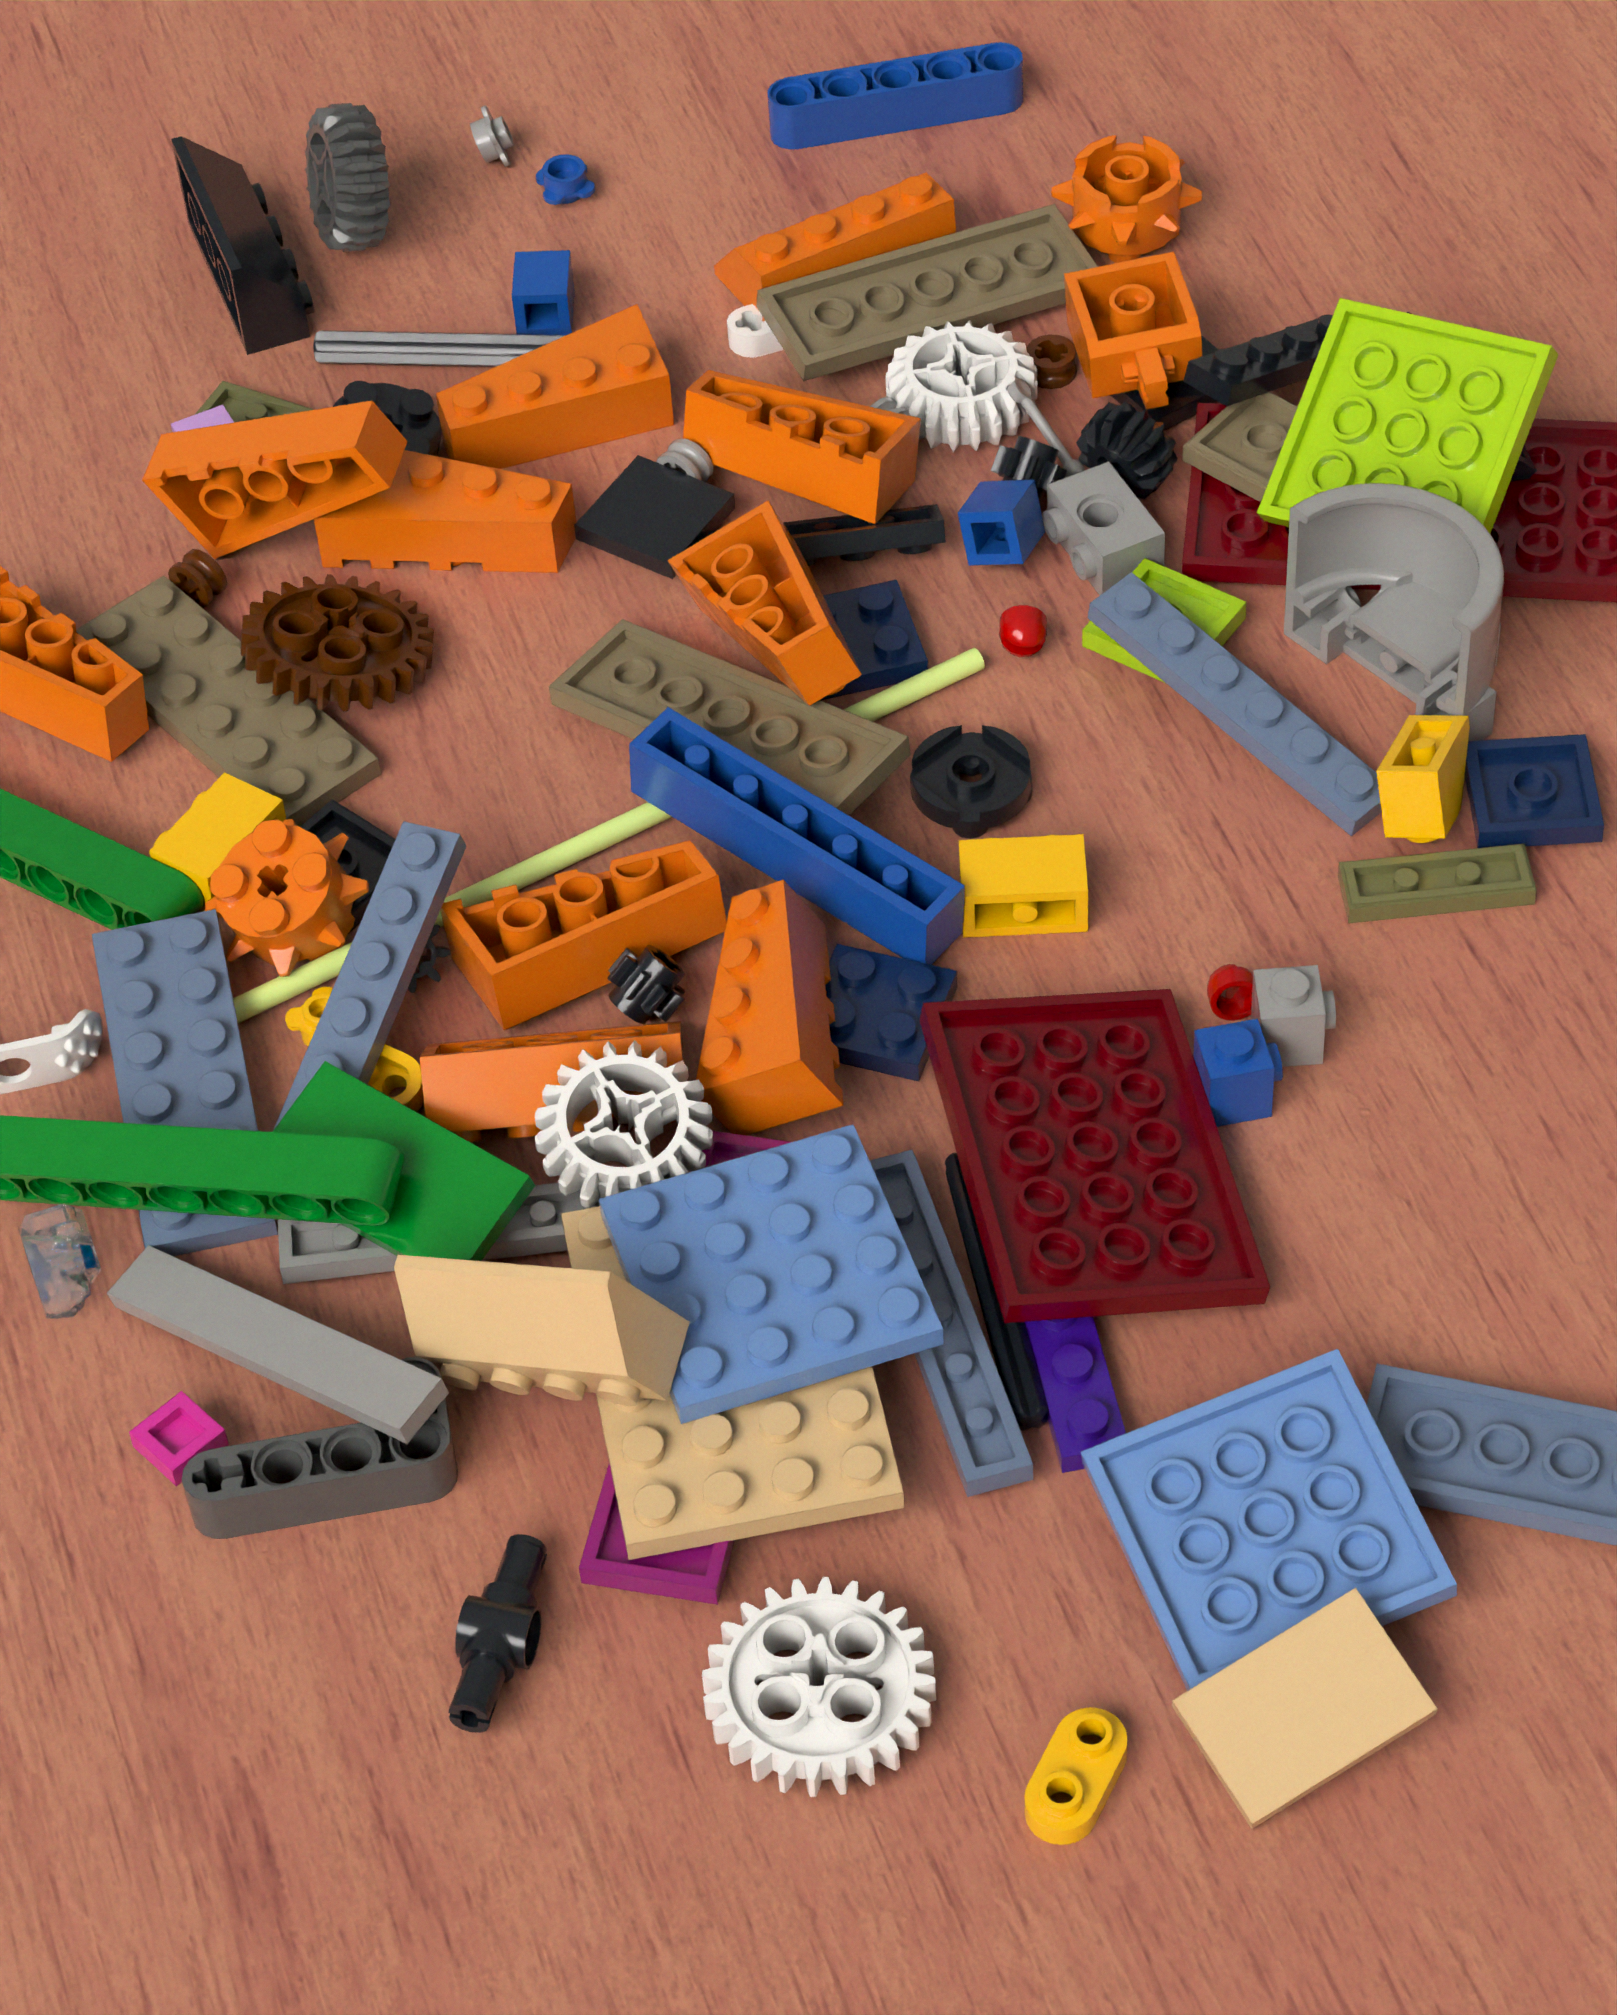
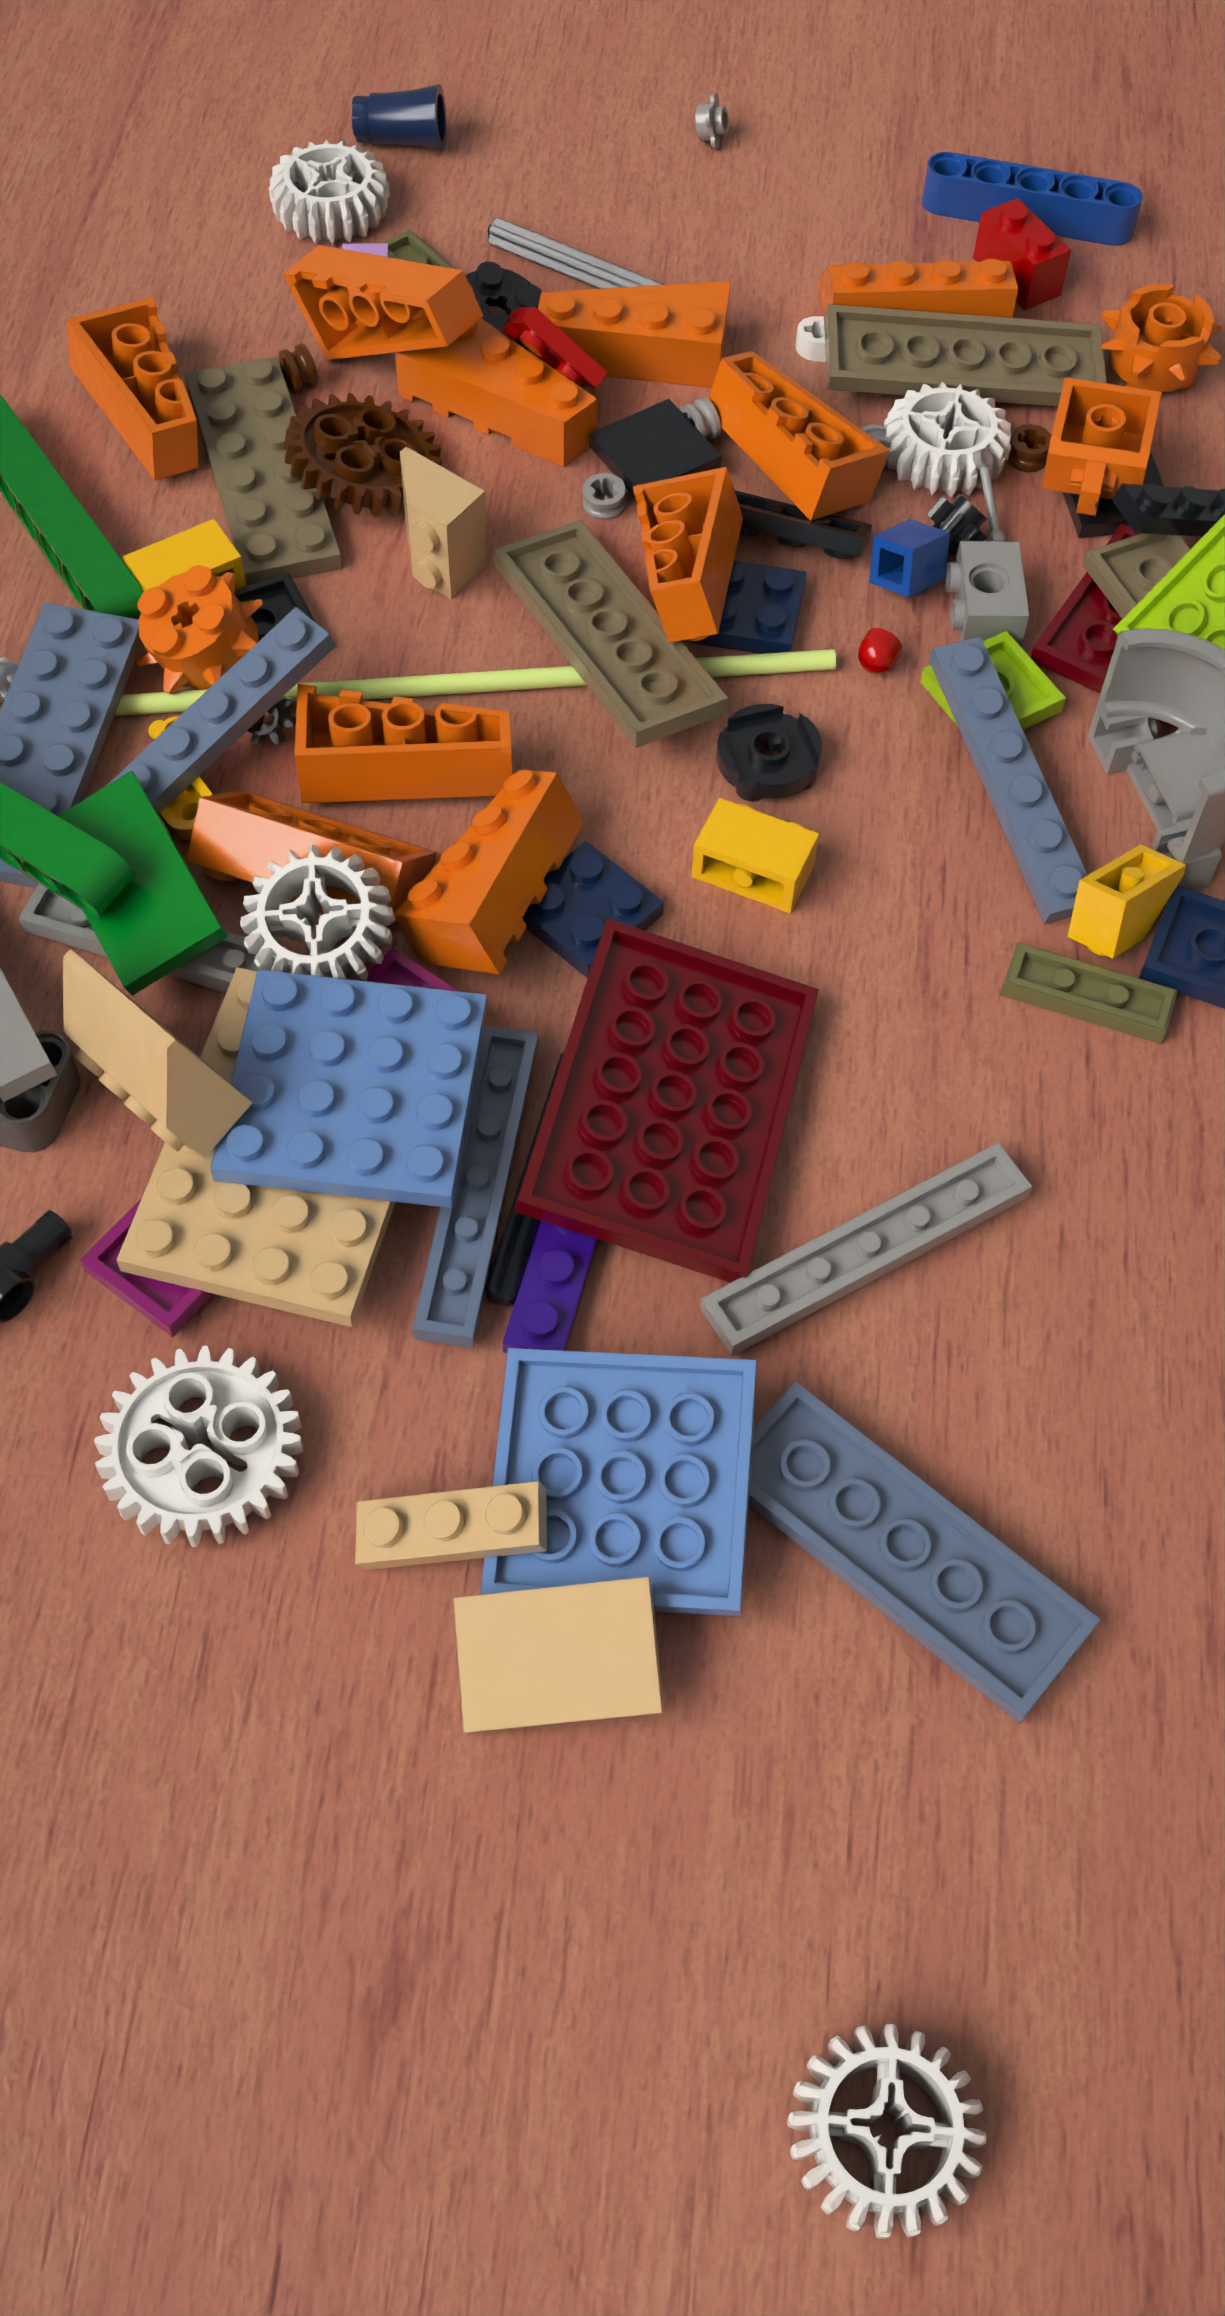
camera: 20 degrees right, 10 degrees up
(104, 373) = (329, 191): none -> white gear
(136, 260) = (401, 118): none -> dark blue plant
(242, 249) = (478, 133): black slope -> none
(347, 177) = (577, 106): dark grey gear -> none
(478, 680) = (442, 524): none -> tan slope
(489, 443) = (553, 346): none -> red plate
(543, 292) = (676, 249): blue brick -> none
(564, 180) = (747, 173): blue plate -> none
(626, 571) = (604, 484): none -> light grey bush
(646, 984) = (420, 812): black gear -> none
(797, 838) = (597, 745): blue brick -> none
(911, 143) = (1035, 252): none -> red brick
(1078, 1769) = (358, 1618): yellow plate -> none
(1125, 1640) = (451, 1526): none -> tan plate
(1131, 444) = (1044, 537): black gear -> none
(1237, 1071) = (828, 1081): blue brick -> none
(1238, 996) = (876, 1019): red hinge -> none
(1293, 1012) = (899, 1053): light grey brick -> none
(1365, 1216) = (864, 1249): none -> light grey plate

